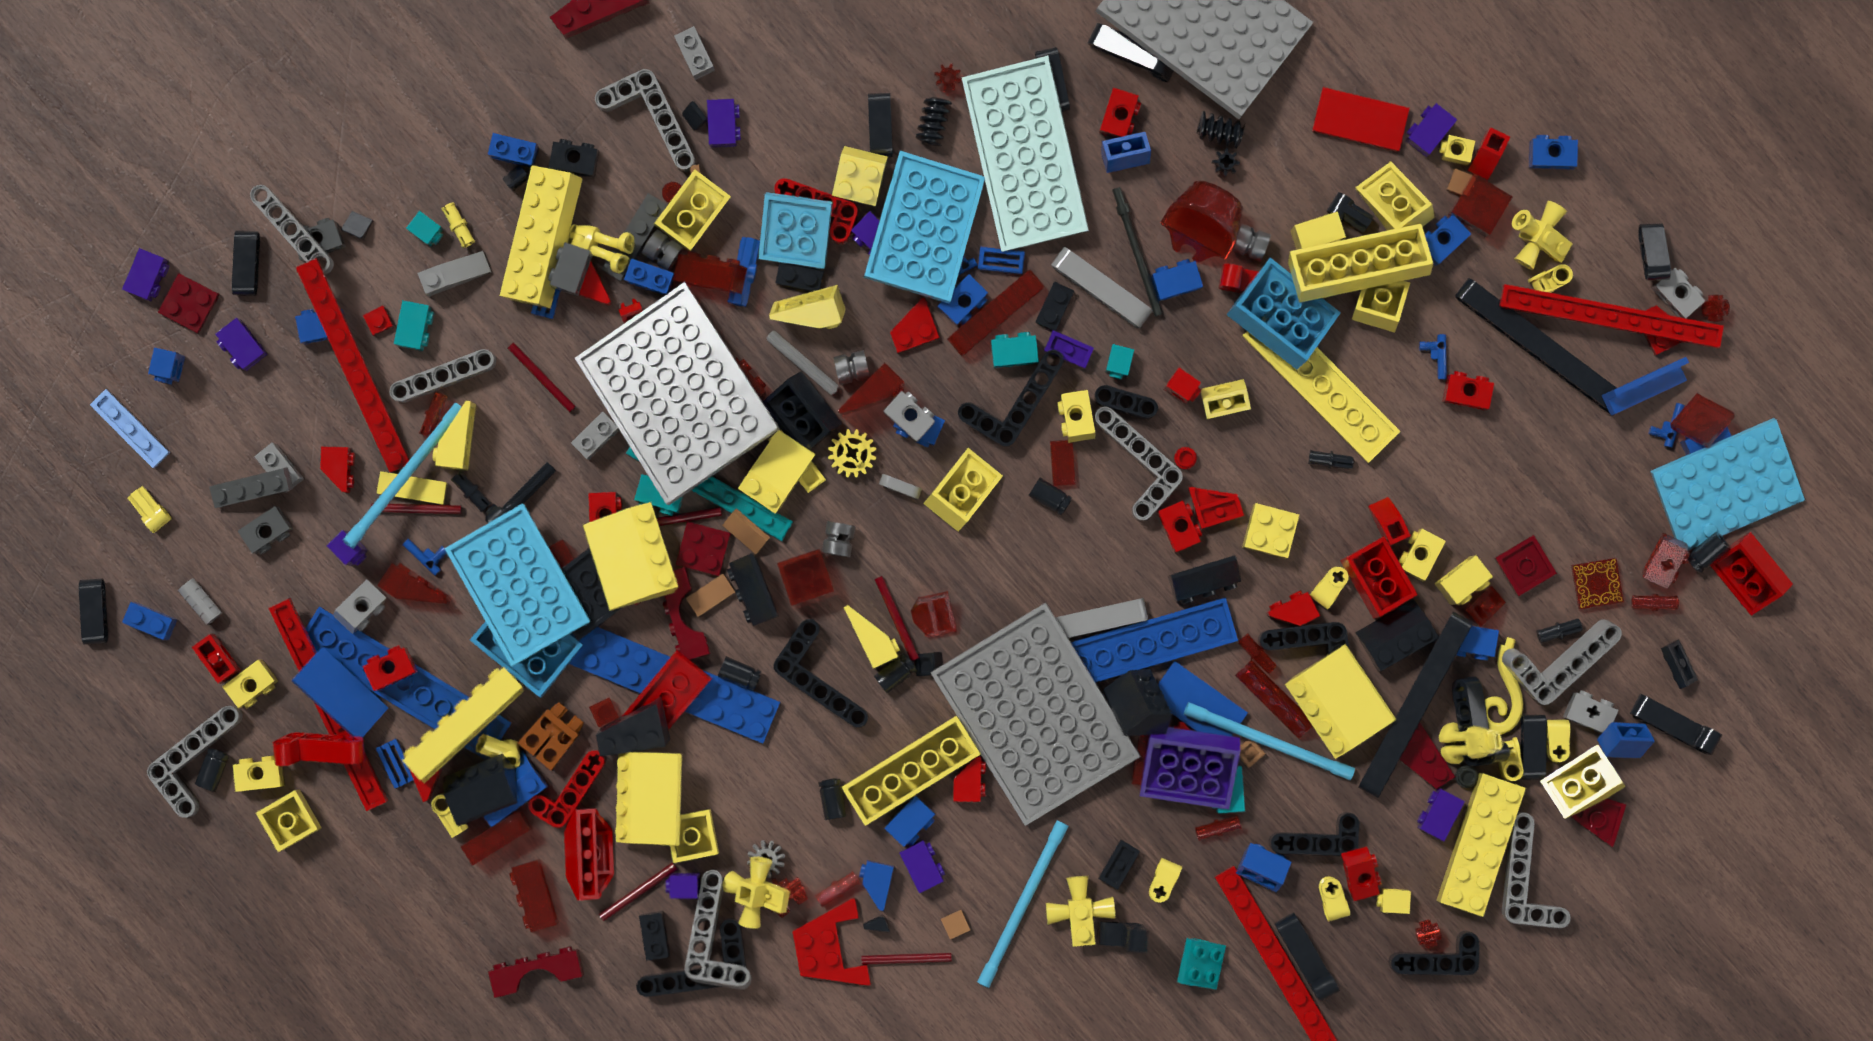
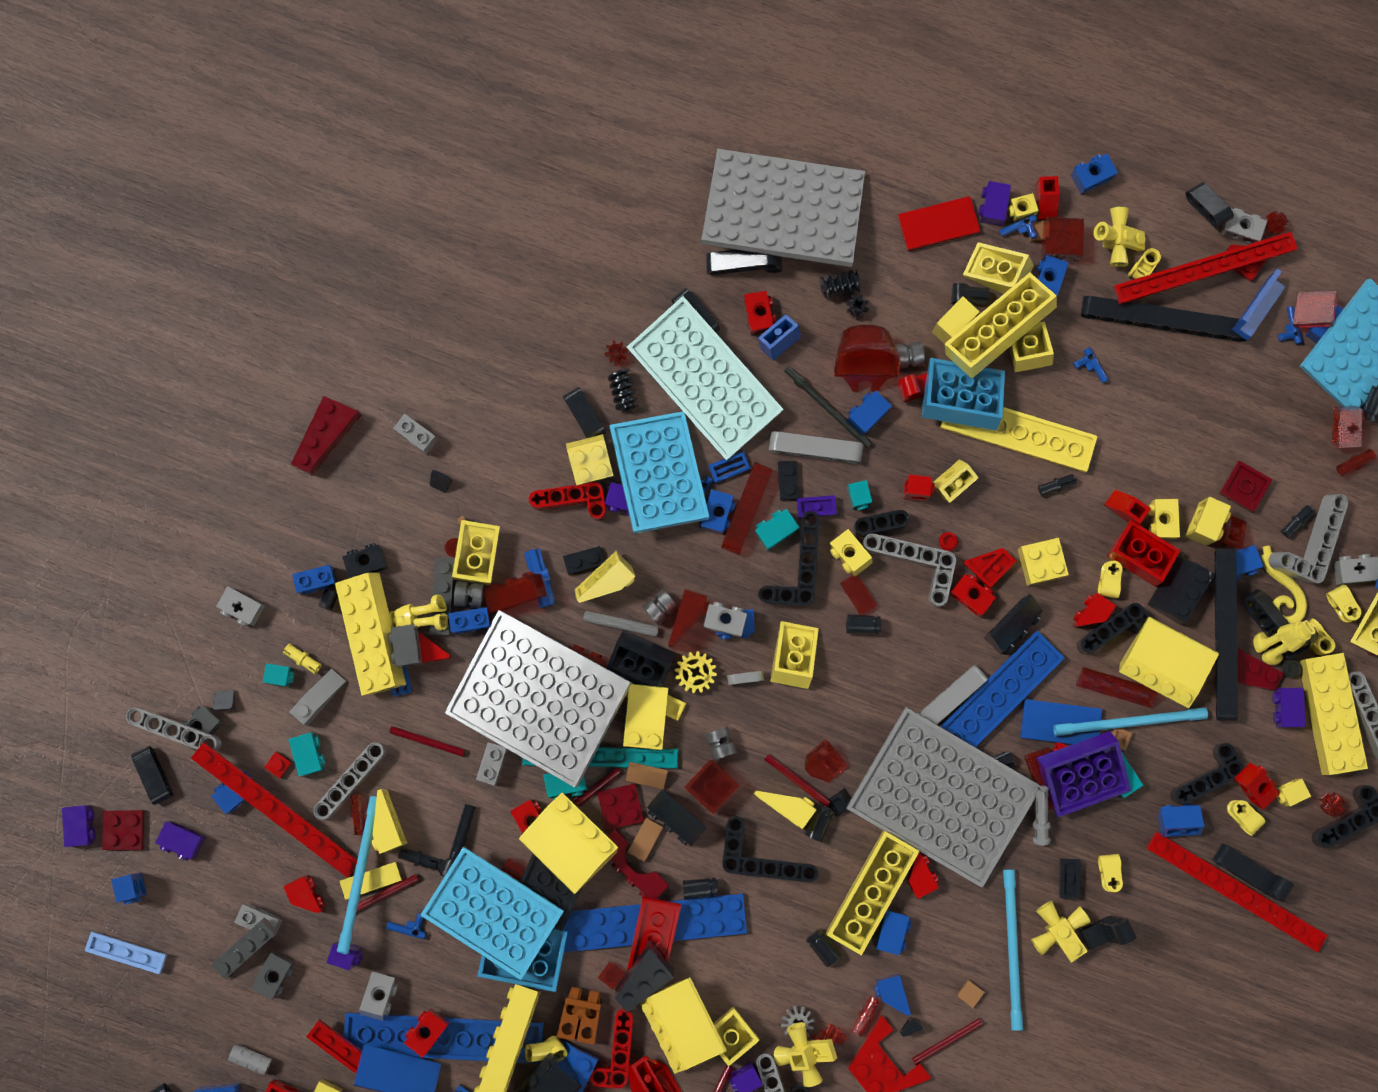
camera: 25 degrees left, 5 degrees down
(152, 514) = (177, 1010): light yellow piece -> none
(402, 585) = (401, 960): clear red slope -> none
(417, 125) = (251, 608): none -> light grey brick
(630, 311) = (469, 653): red tile -> none
(657, 112) = (409, 493): light grey beam -> none
(722, 123) = (464, 475): dark purple brick -> none
(795, 230) = (562, 526): medium azure plate -> none
(915, 328) = (692, 552): red wing -> none
(922, 866) = (921, 963): dark purple brick -> none
(1120, 794) = (1041, 823): none -> light grey pin
(1138, 704) = (1019, 746): black slope -> none
(1201, 963) = (1175, 921): teal plate -> none
(1218, 827) = (1128, 809): clear red pin -> none
(1257, 653) = (1083, 660): clear red axle -> none
(1445, 170) = (1021, 227): none -> blue hose
(1455, 395) = (1142, 379): red brick -> none
(1533, 747) = (1328, 616): black beam -> none
(1597, 583) = (1305, 471): clear red plate -> none

